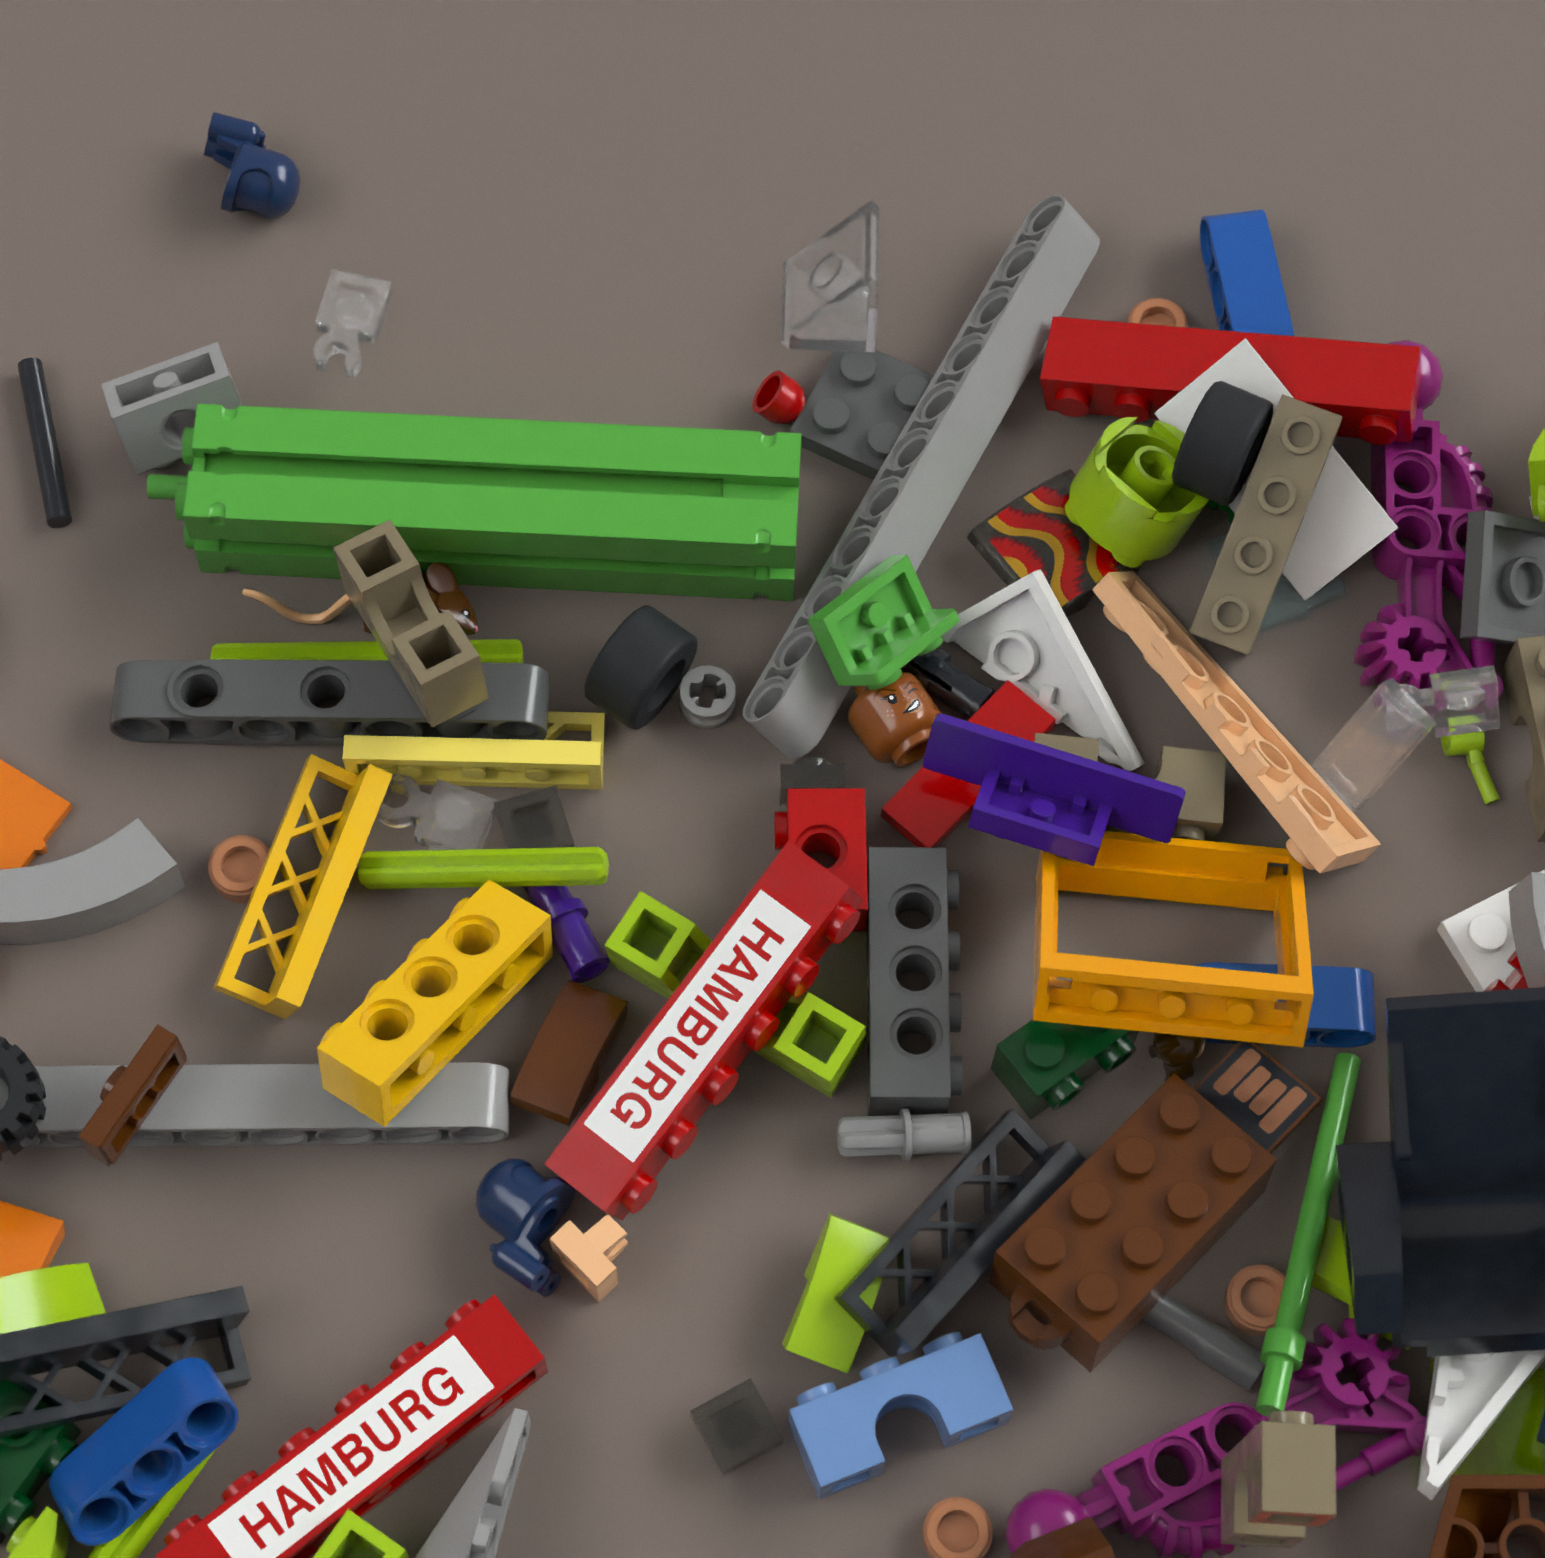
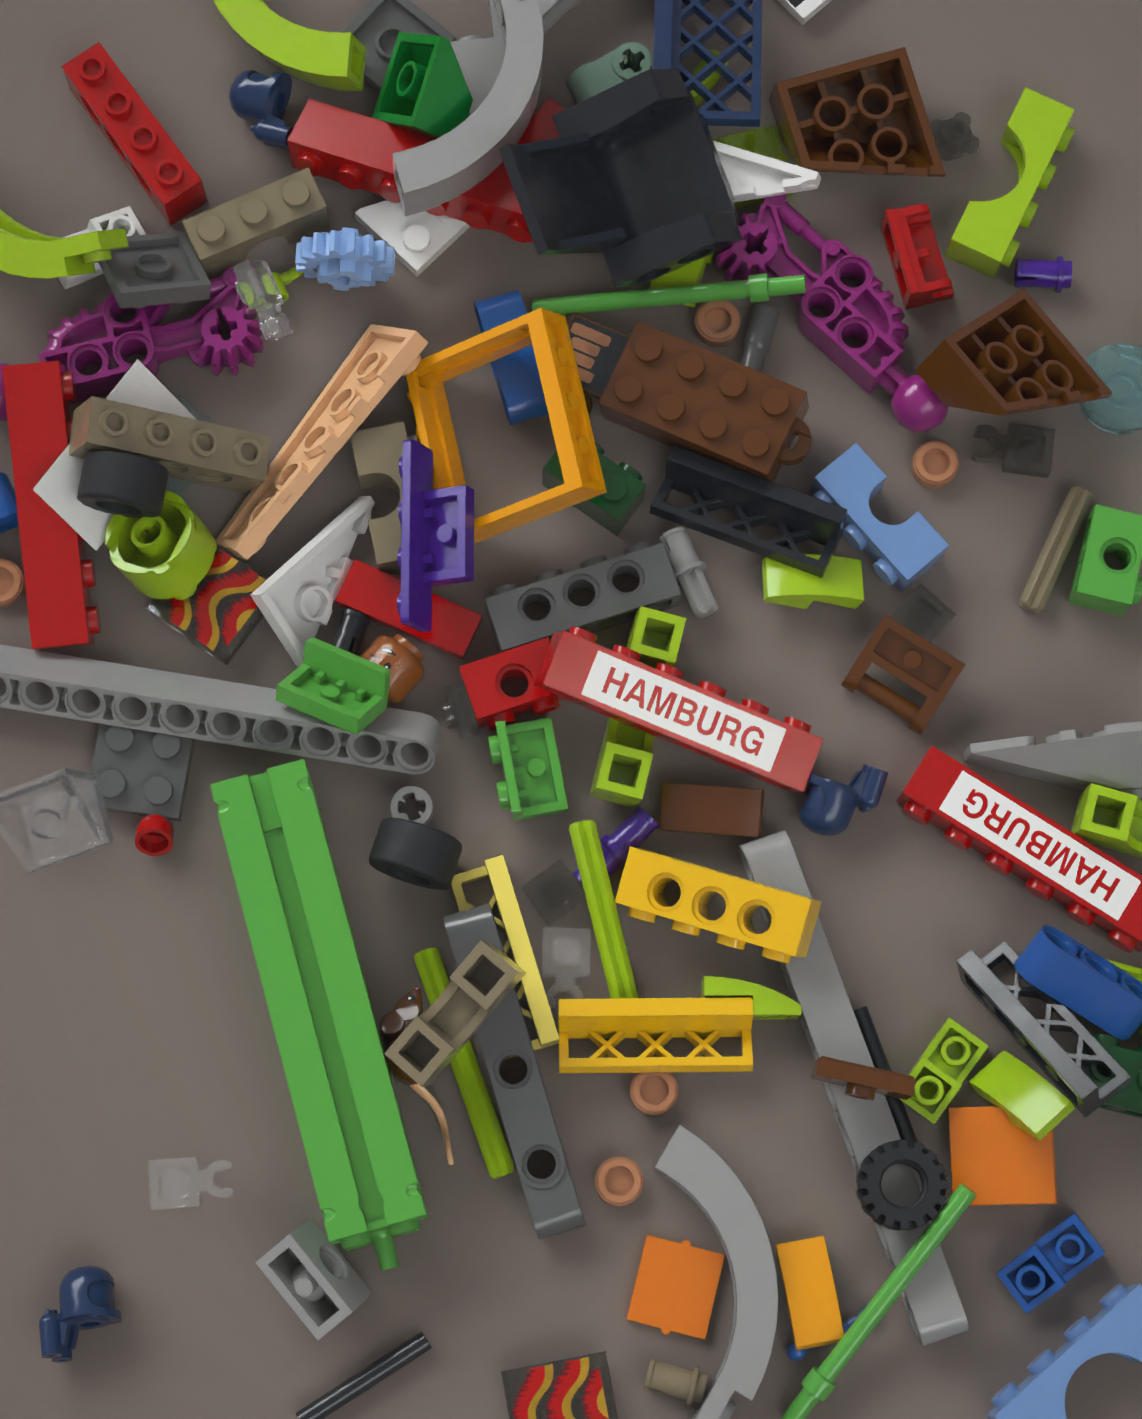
camera: 110 degrees left, 10 degrees up
(116, 1231) = (943, 1069): none -> lime slope
(143, 1157) = (880, 1061): none -> black bar
(149, 792) = (618, 1181): none -> nougat tile
(297, 1029) = (766, 1002): none -> lime slope
(591, 1254) = (845, 746): light nougat tile -> none
(674, 1382) = (910, 660): none -> reddish brown plate
(704, 840) = (530, 769): none -> bright green bracket
(1278, 1481) = (866, 251): dark tan arch -> none
(1373, 744) = (309, 338): clear tile -> none
(1474, 818) = (345, 259): none -> light blue gear

